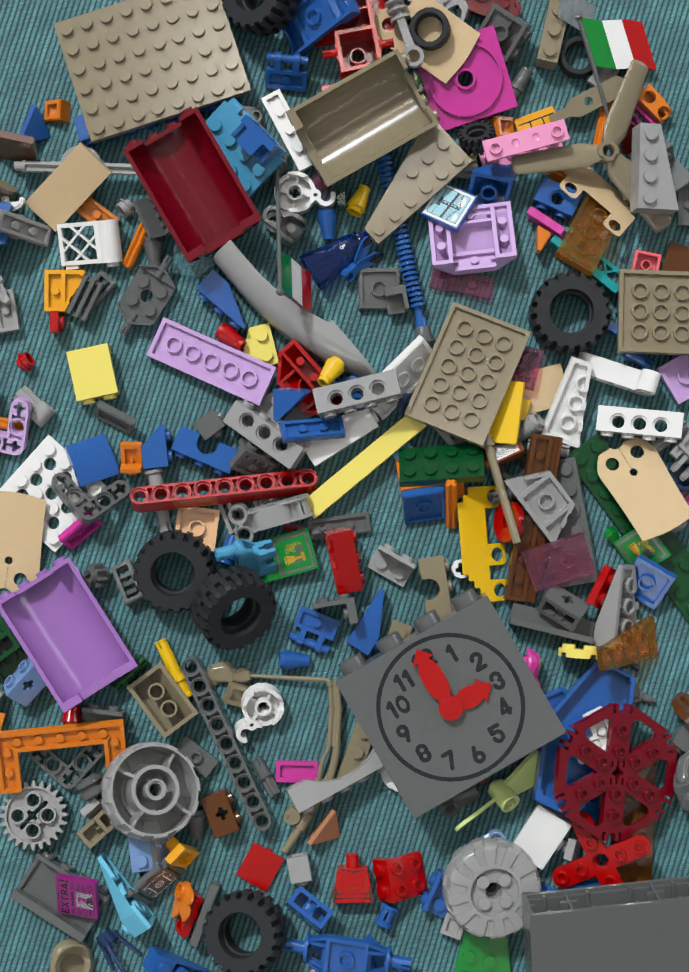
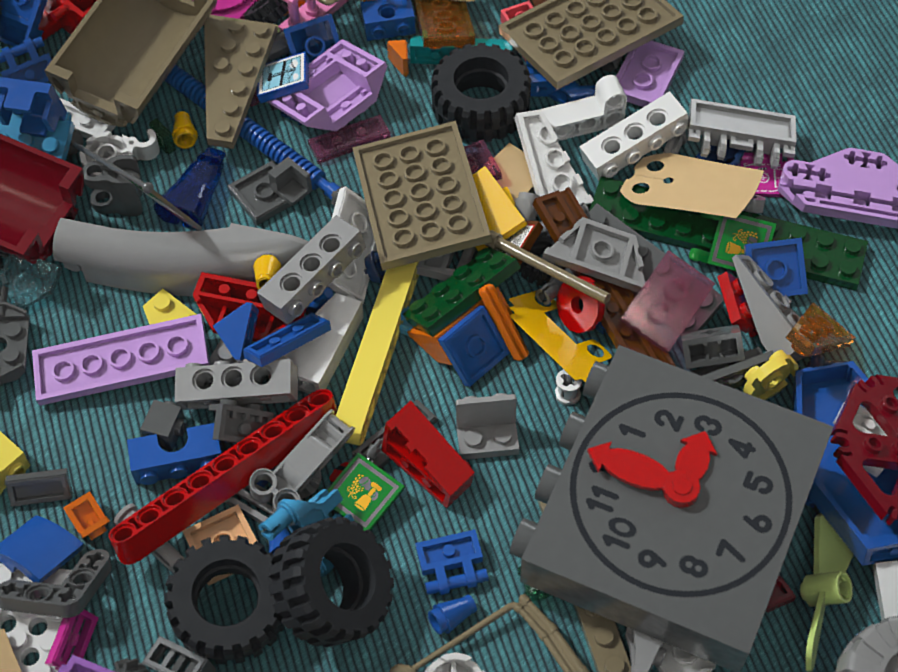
camera: 35 degrees left, 30 degrees down
(156, 450) = (113, 488): blue slope -> none
(219, 293) = (88, 294): blue slope -> none
(229, 336) = (124, 321): red cone -> none
(318, 182) = (131, 131): clear pink plate -> none
(327, 223) = (161, 163): blue cone -> none
(350, 611) = (463, 496): dark grey bracket -> none
(361, 260) = (224, 174): blue piece -> none
(368, 628) = (511, 505): blue slope -> none
(436, 569) = (540, 407): dark tan arch -> none
(452, 806) = (776, 640): dark grey piece -> none
(545, 222) = (379, 38): dark pink tile -> none

